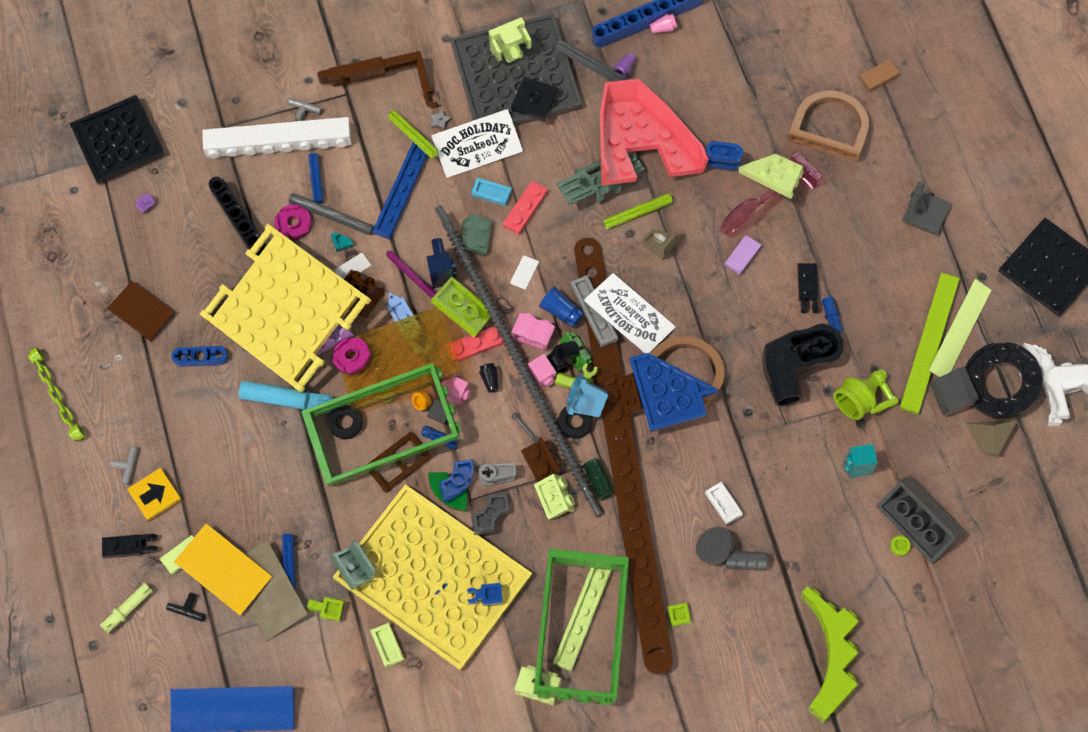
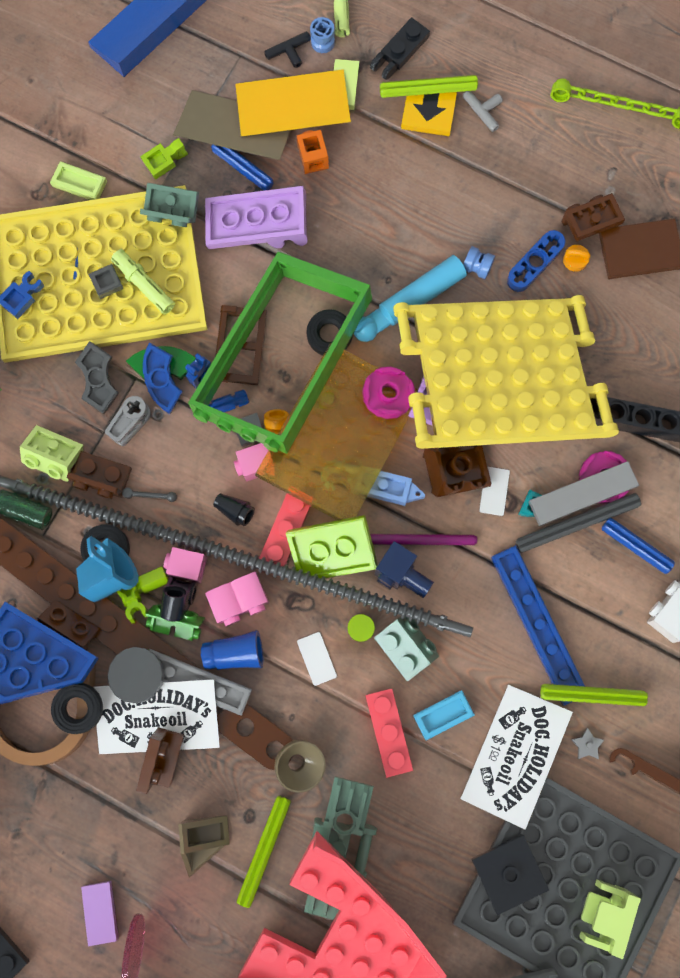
camera: 135 degrees right, 10 degrees up
(142, 502) = (428, 86): none -> lime axle
(146, 346) = (593, 217): none -> reddish brown bracket
(160, 597) = (322, 35): none -> medium blue wheel
(178, 338) = (576, 258): none -> light orange tile
(229, 380) = (478, 262): none -> medium blue wheel
(243, 522) = (312, 151): none -> orange brick
(313, 221) = (583, 493): none -> light grey tile
(315, 517) = (257, 218): none -> lavender hinge
(412, 546) = (135, 274): none -> yellowish green pin
(432, 560) = (106, 281): none -> dark grey tile
(434, 463) = (197, 370): none -> blue plate
(488, 264) = (361, 628): none -> lime tile
(582, 223) = (308, 774): none -> dark tan piece
(619, 336) = (135, 675): none -> dark grey tile
(647, 290) = (160, 759): none -> reddish brown bracket
(668, 337) = (64, 720): none -> black tyre

